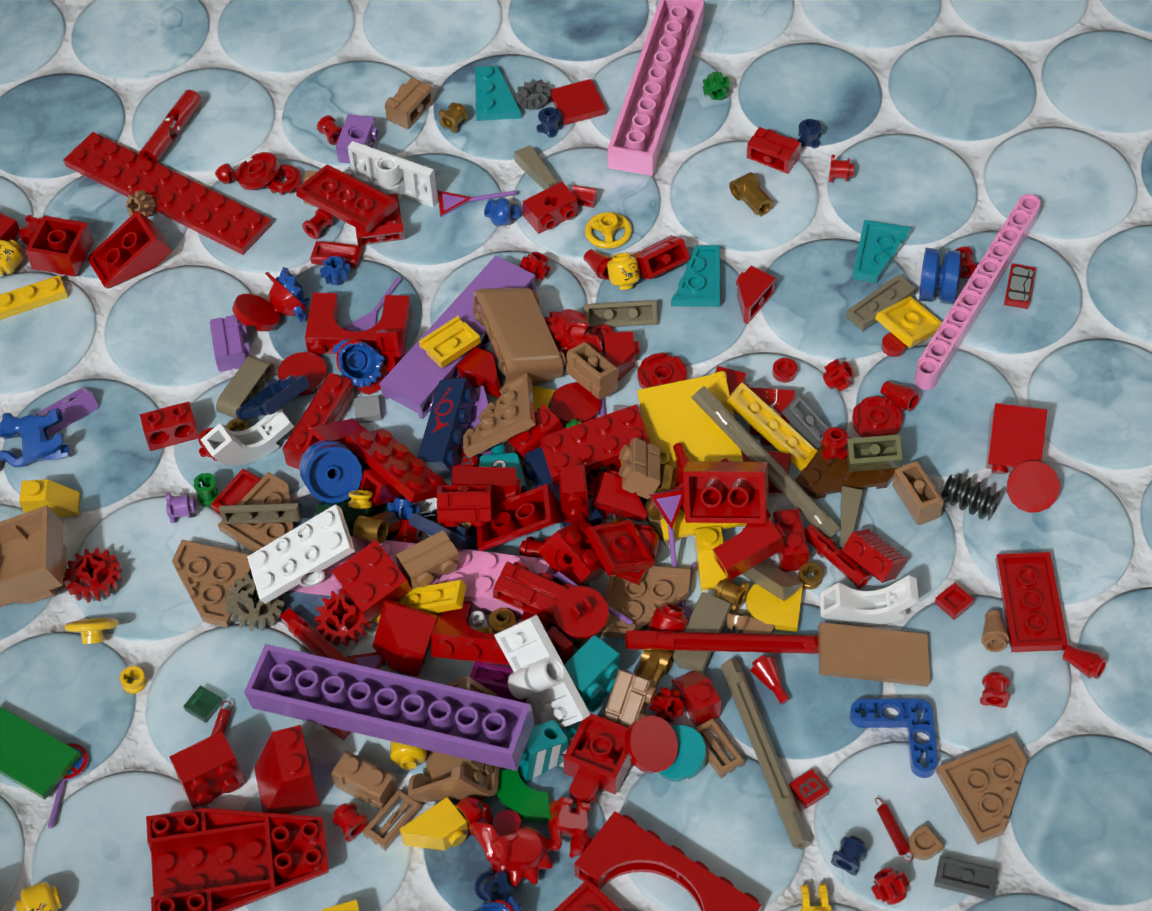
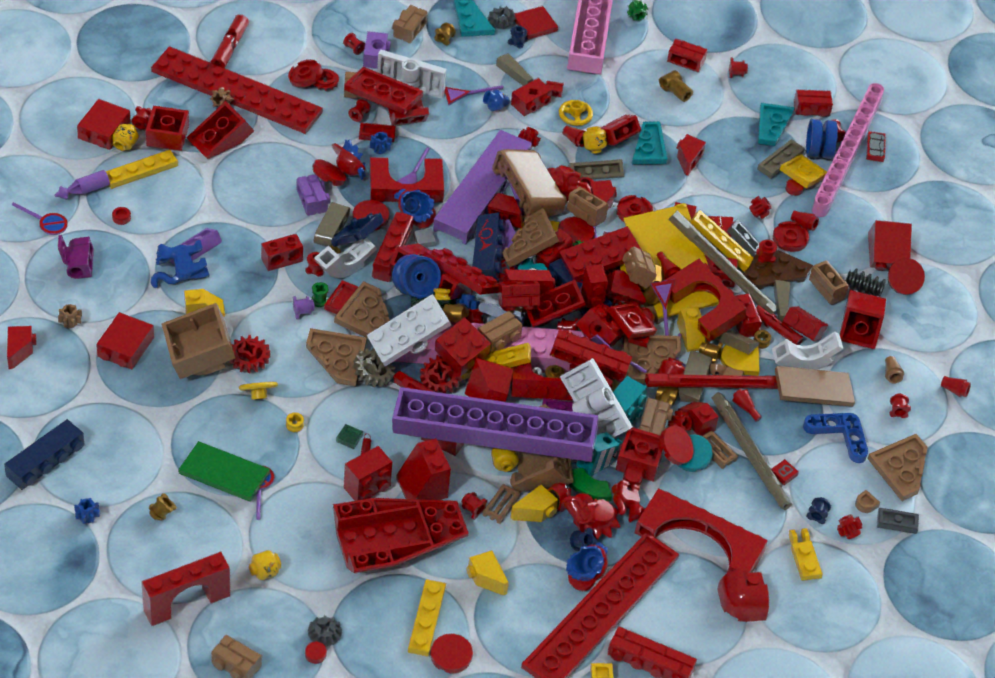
camera: 15 degrees left, 5 degrees down
(225, 173) = (280, 76): red hinge -> none
(261, 513) = (367, 307): dark tan slope -> none
(364, 780) = (478, 478): medium nougat brick -> none
(391, 345) = (438, 192): red plate -> none
(449, 342) = (481, 188): yellow plate -> none
(581, 612) = (615, 361): red piece -> none
(726, 492) = (704, 280): red slope -> none
(784, 370) = (720, 205): red tile -> none
(809, 133) = (710, 42): dark blue brick -> none
(874, 453) = (796, 255): olive brick -> none
(893, 829) = (851, 503): red piece -> none
(938, 221) = (813, 102): none -> red brick
(954, 601) = (863, 351): red plate -> none
(959, 550) = (862, 319): none -> red slope
(1031, 602) = (915, 350): red plate -> none

